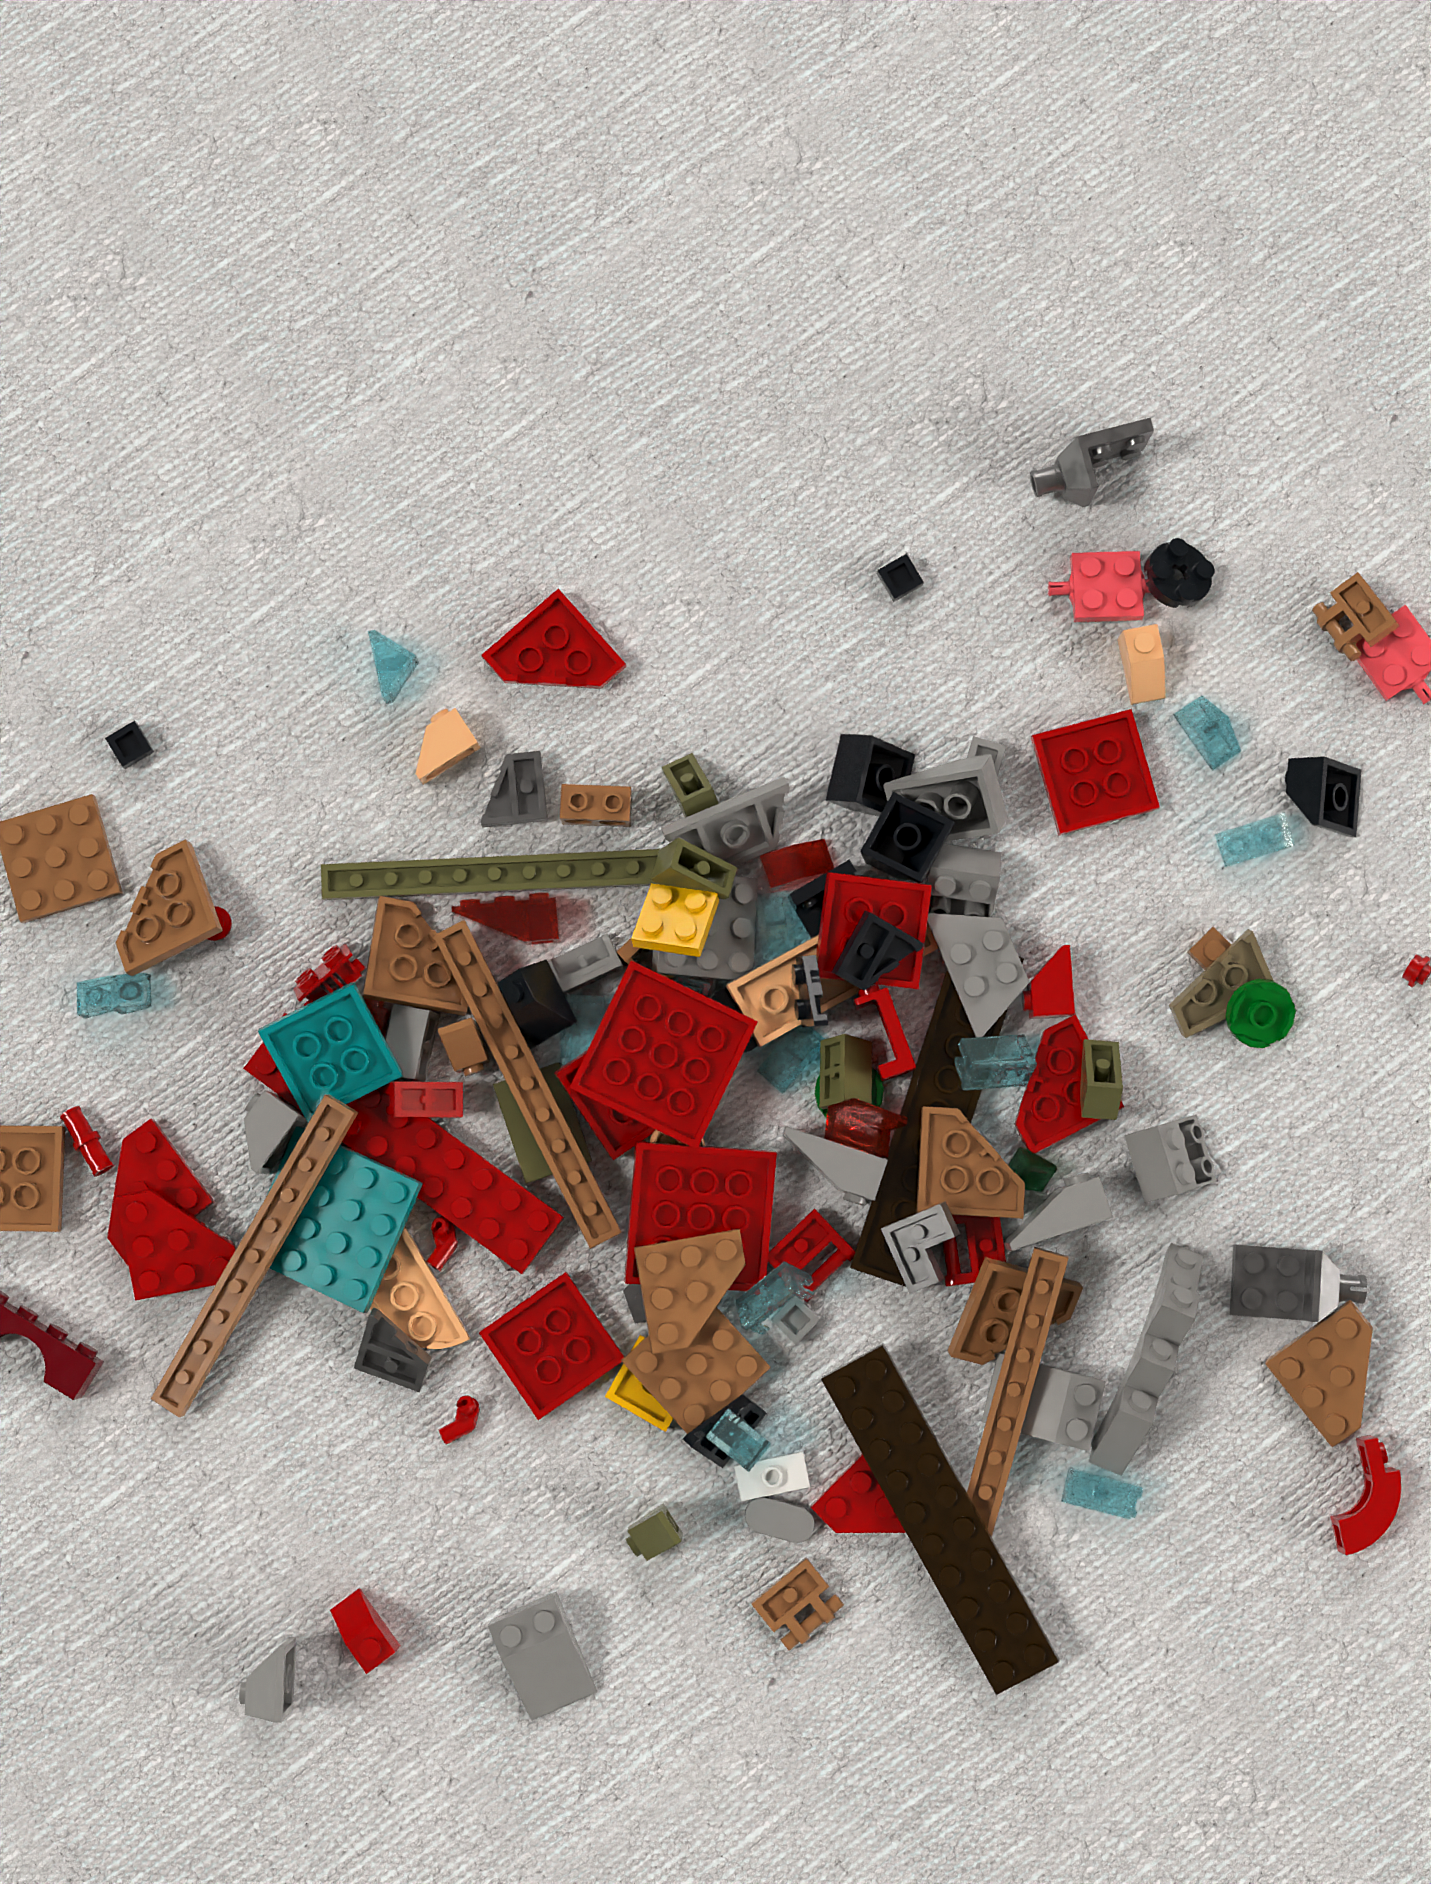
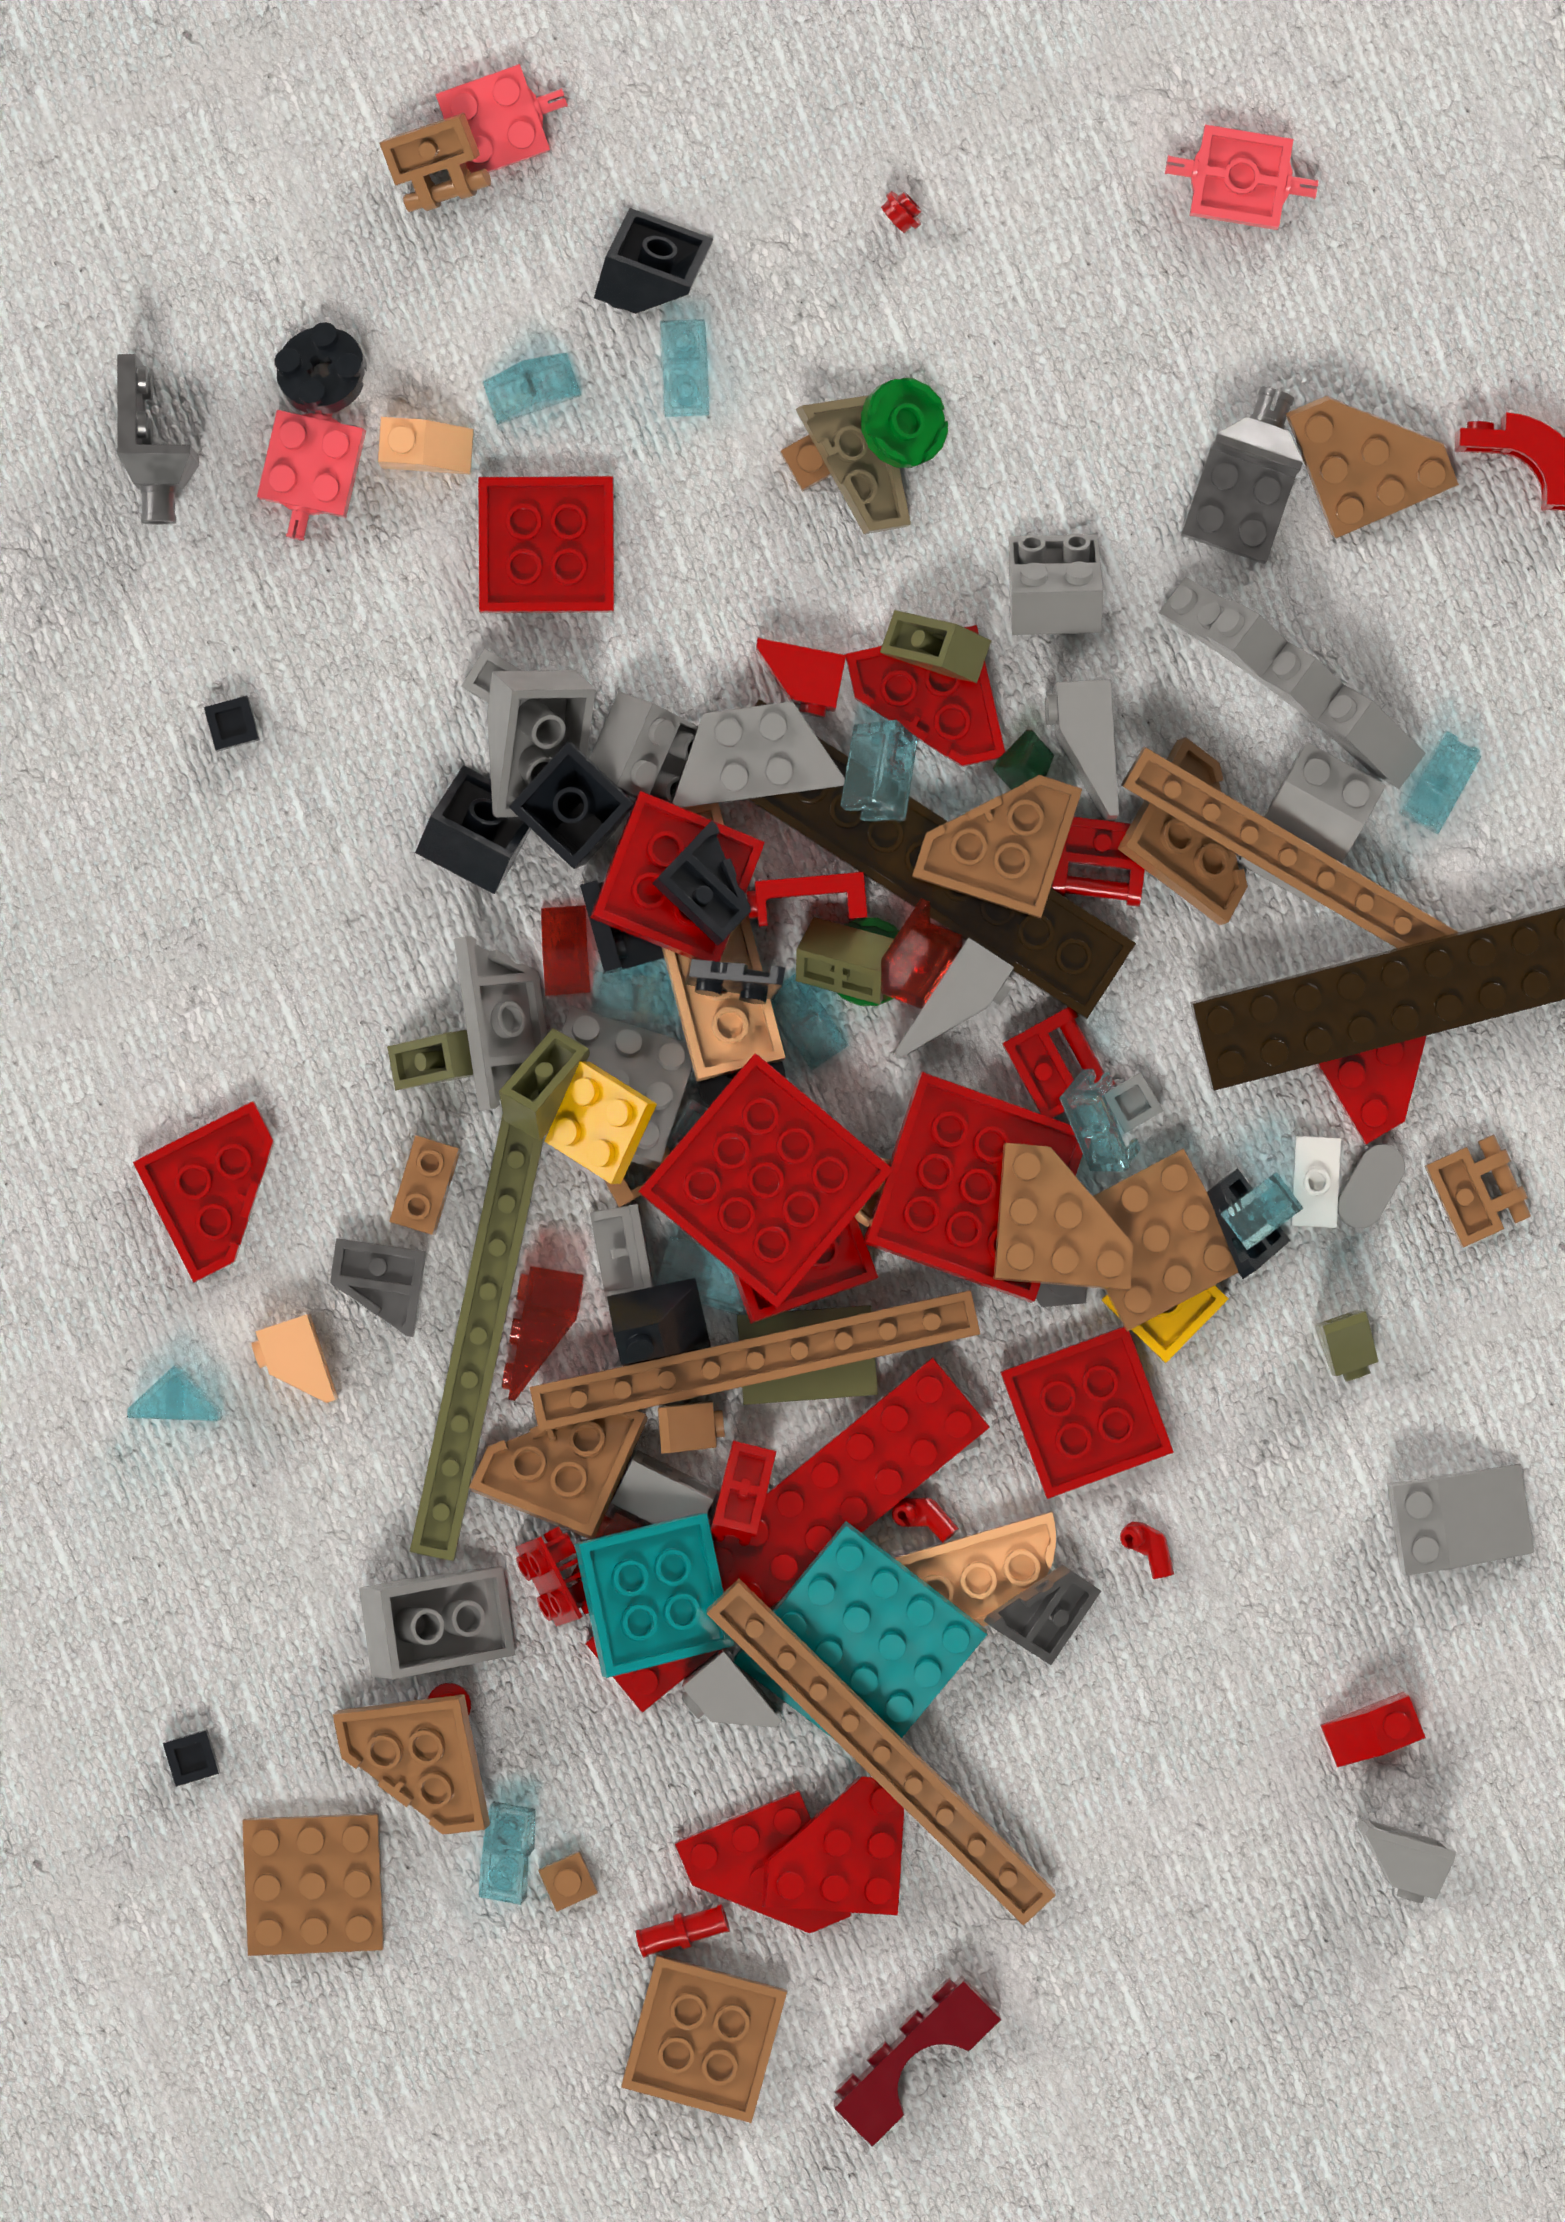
camera: 80 degrees left, 5 degrees up
(104, 1046) = (568, 1881): none -> medium nougat plate
(273, 898) = (436, 1622): none -> light grey slope
(912, 1241) = (1075, 934): flat silver plate -> none

